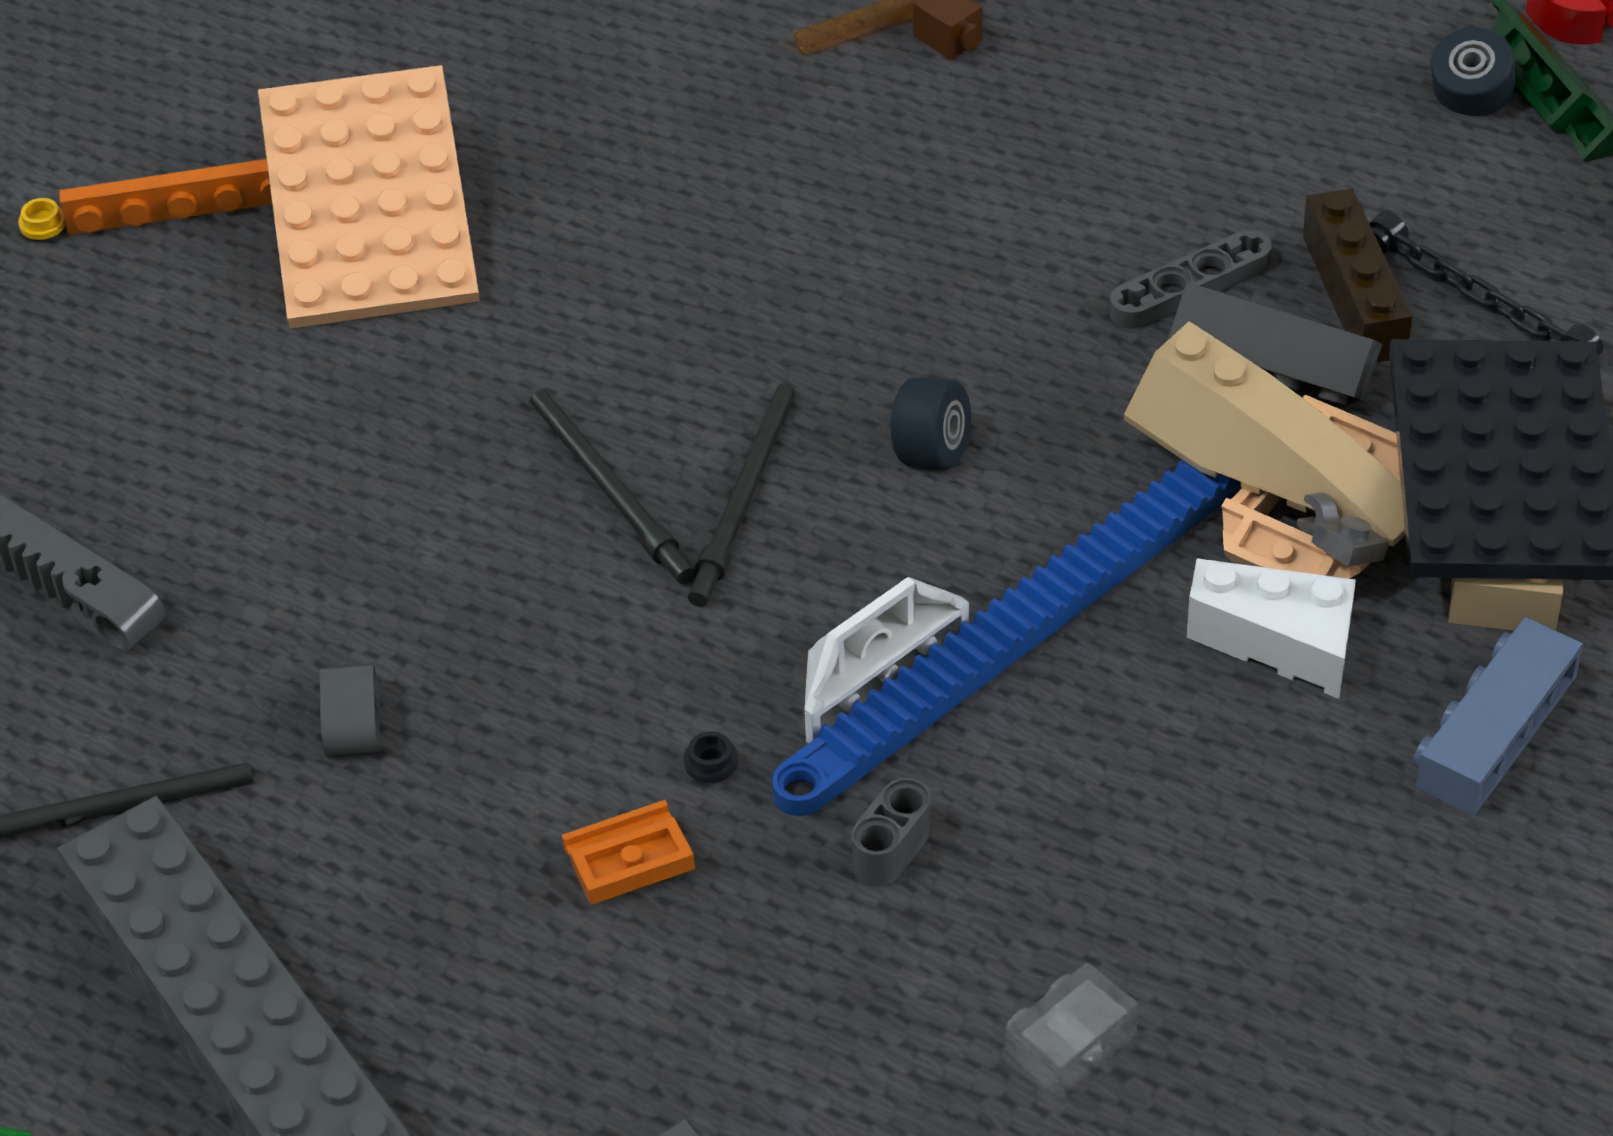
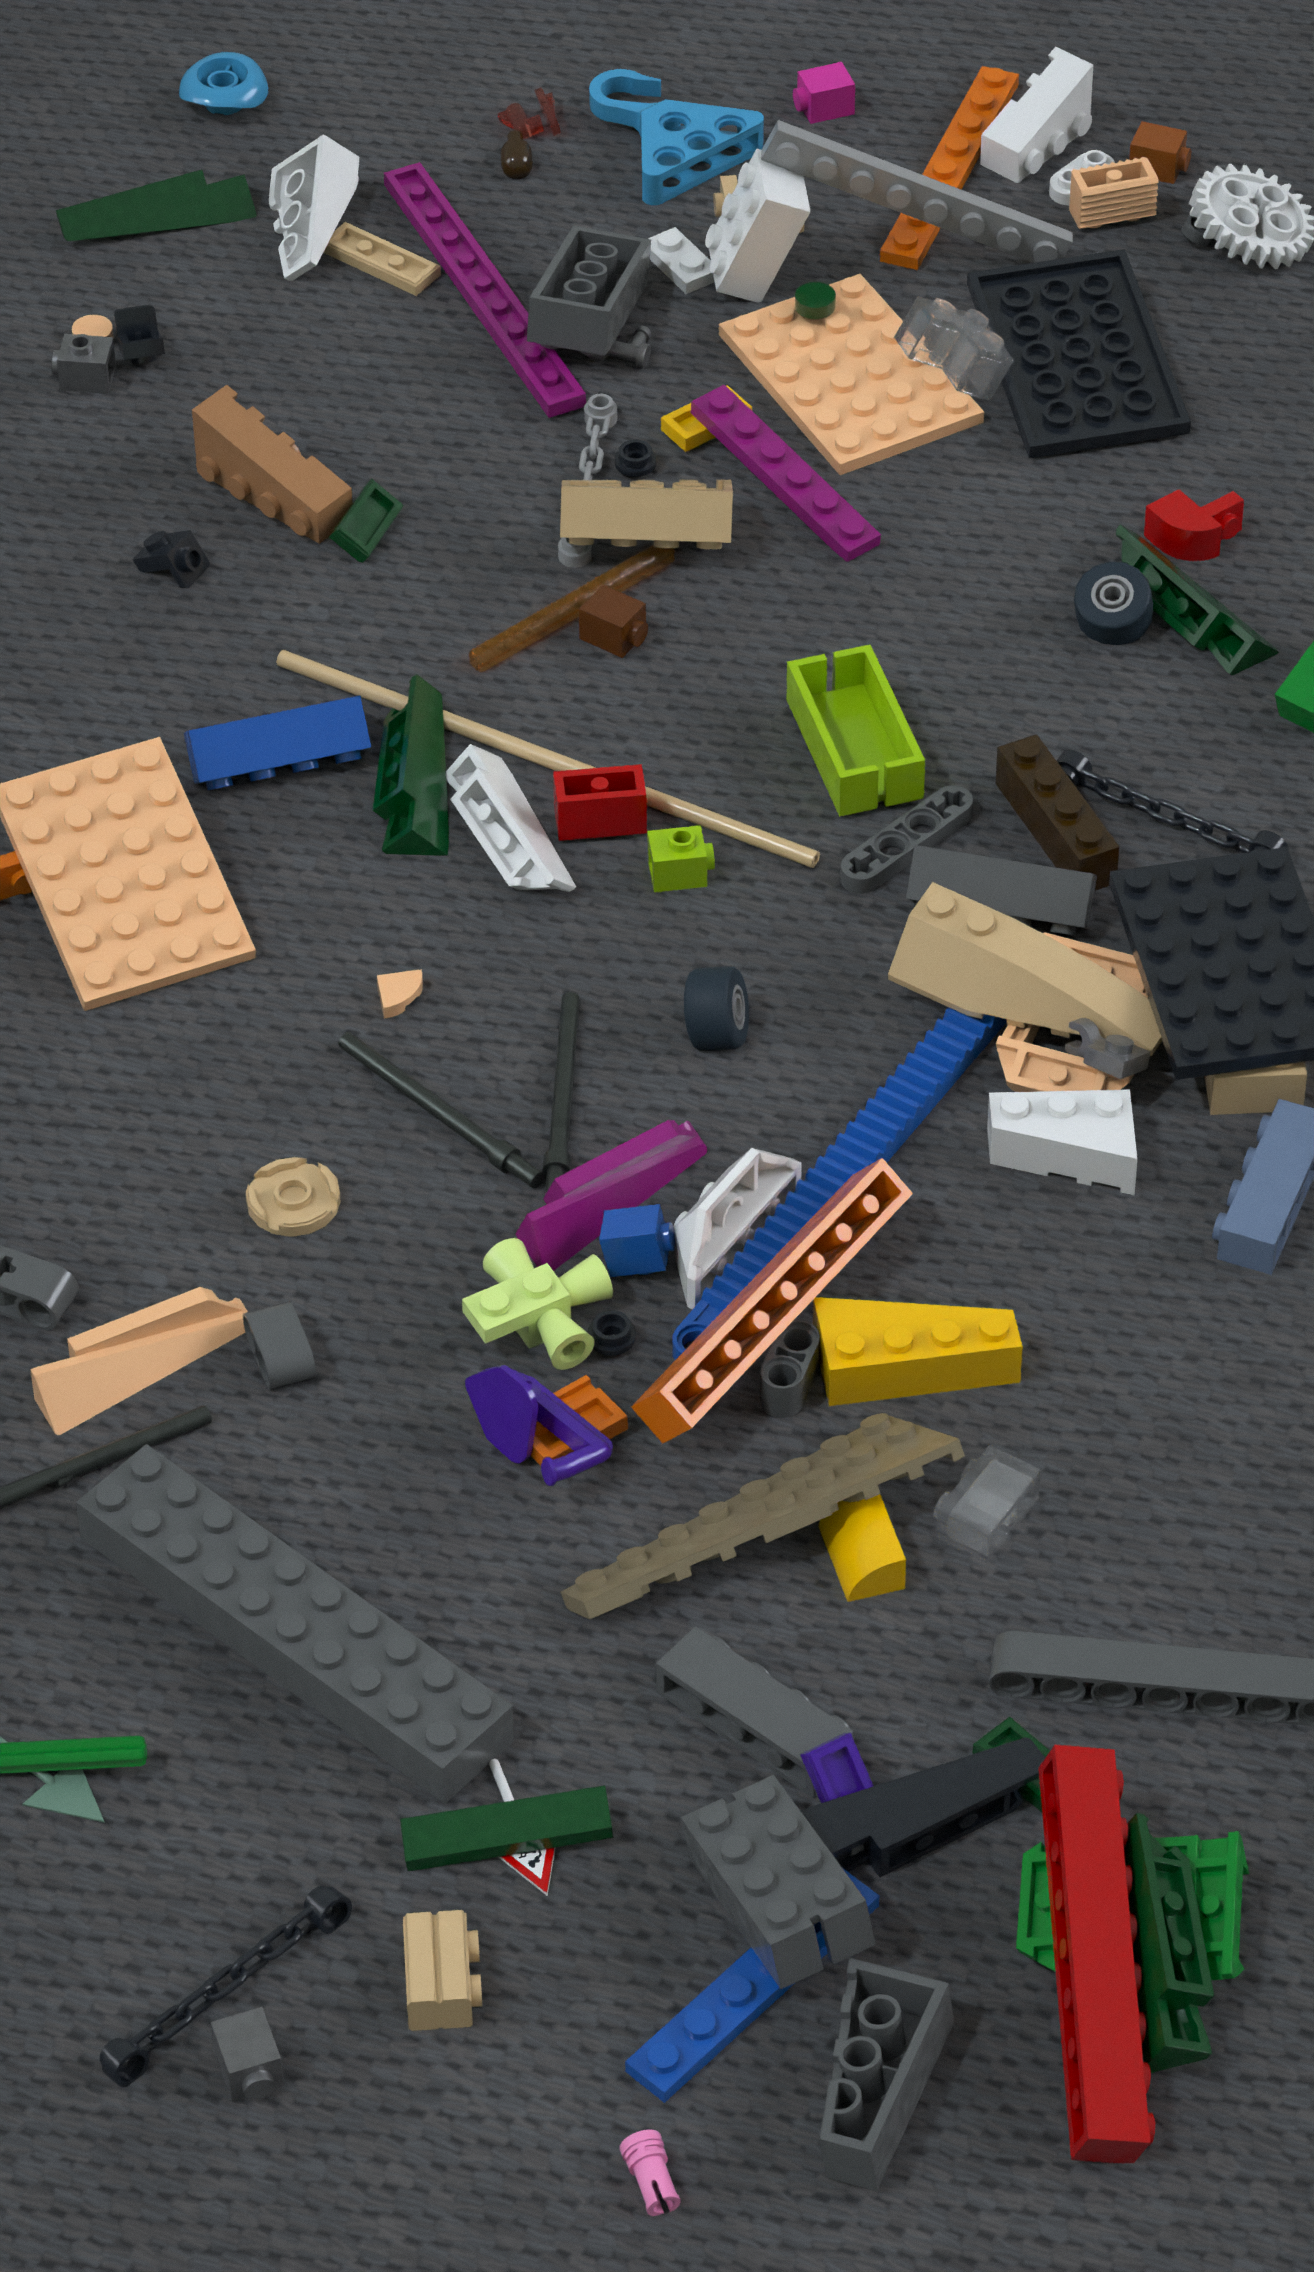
camera: 15 degrees left, 0 degrees up
(194, 693) = (133, 1354): none -> light nougat wedge
(427, 566) = (293, 1210): none -> tan tile
(570, 89) = (277, 740): none -> blue wedge
(574, 812) = (508, 1413): none -> dark purple piece
(611, 354) = (398, 991): none -> light nougat tile
(635, 709) = (537, 1302): none -> yellowish green brick
(700, 143) = (413, 775): none -> dark green wedge
(752, 598) = (608, 1182): none -> magenta wedge
(764, 658) = (636, 1240): none -> blue brick
(777, 202) = (505, 822): none -> white wedge
(814, 992) = (795, 1497): none -> dark tan wing
(852, 152) = (551, 759): none -> tan piece
(874, 194) = (600, 802): none -> red brick
(884, 753) = (771, 1301): none -> brick
(913, 1055) = (864, 1549): none -> yellow brick
(941, 263) = (679, 858): none -> lime brick
(1034, 833) = (912, 1348): none -> yellow wedge
(1163, 164) = (855, 731): none -> lime piece

